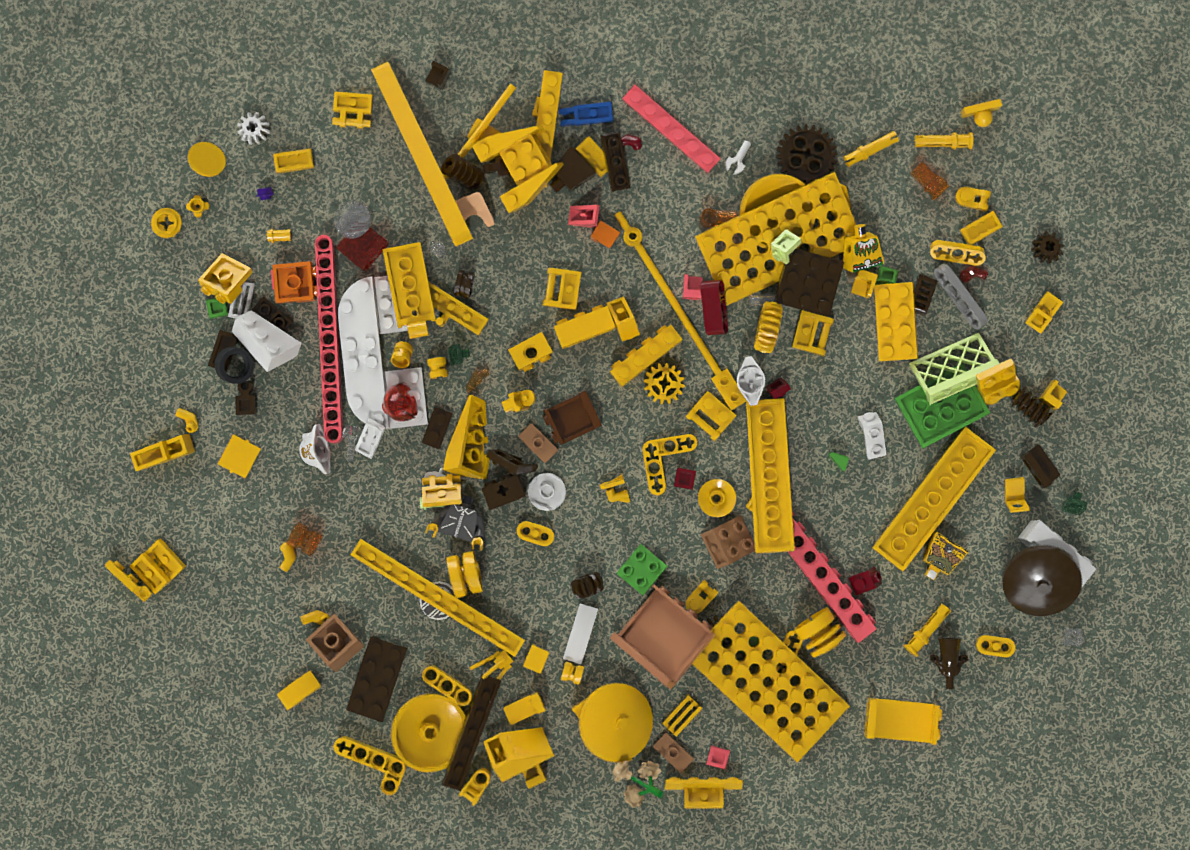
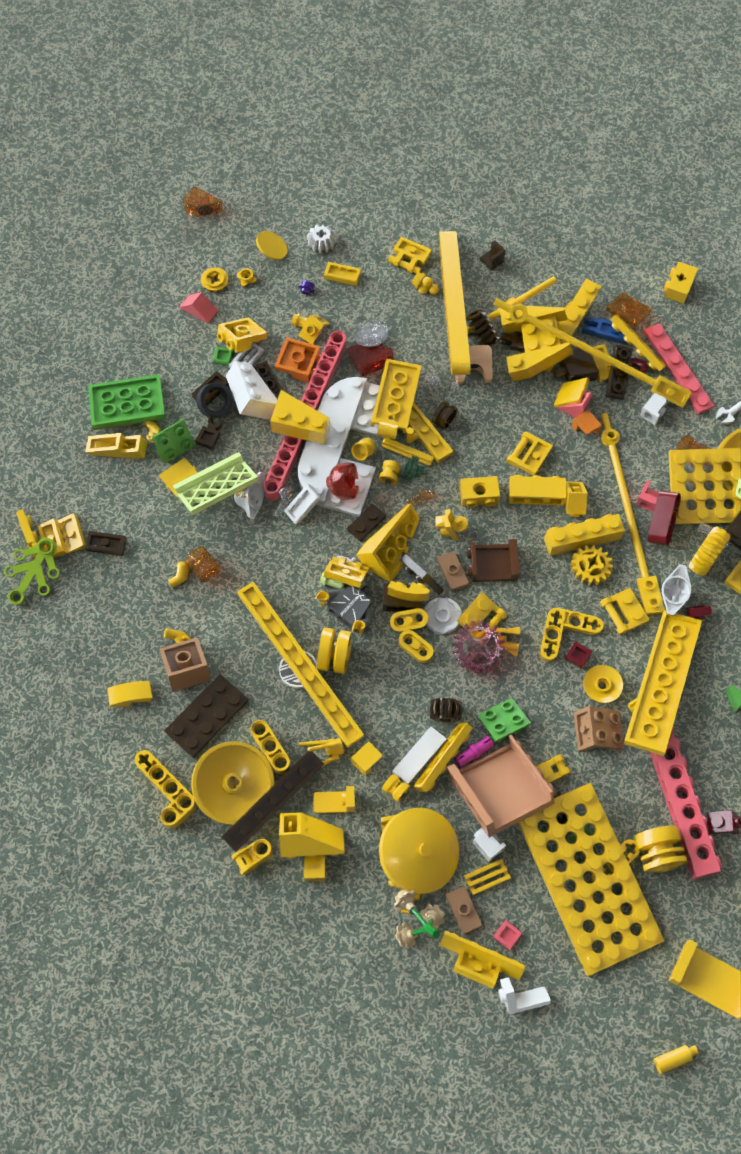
camera: 25 degrees right, 20 degrees down
(107, 138) = (201, 203): none -> clear orange slope
(147, 401) = (126, 402): none -> bright green plate
(150, 611) = (33, 568): none -> lime plant
(166, 262) = (199, 306): none -> coral slope
(203, 556) = (105, 543): none -> dark brown plate
(216, 427) = (173, 441): none -> bright green hinge
(271, 448) = (215, 475): none -> yellowish green fence
(293, 237) = (312, 328): none -> yellow bracket
(326, 357) = (299, 420): none -> yellow wedge
(382, 138) = (424, 284): none -> yellow piece
(447, 336) = (407, 451): none -> yellow axle
(517, 487) = (415, 592): none -> yellow slope
(520, 511) = (409, 618): none -> yellow plate
(577, 206) = (571, 392): none -> yellow piece
(577, 478) = (478, 611): none -> yellow plate
(599, 83) = (629, 309): none -> clear orange plate
(602, 627) = (439, 762): none -> yellow plate
(605, 518) = (491, 657): none -> clear pink gear
(627, 124) = (642, 348): none -> yellow plate
(627, 610) = (474, 752): none -> dark pink pin
(643, 16) = (680, 283): none -> yellow brick
(663, 162) = (662, 386): none -> yellow bar
(664, 187) = (654, 408): none -> white brick
(675, 693) = (487, 845): none -> white brick
(751, 806) = (524, 1000): none -> white bracket
(890, 798) = (675, 1058): none -> yellow cylinder

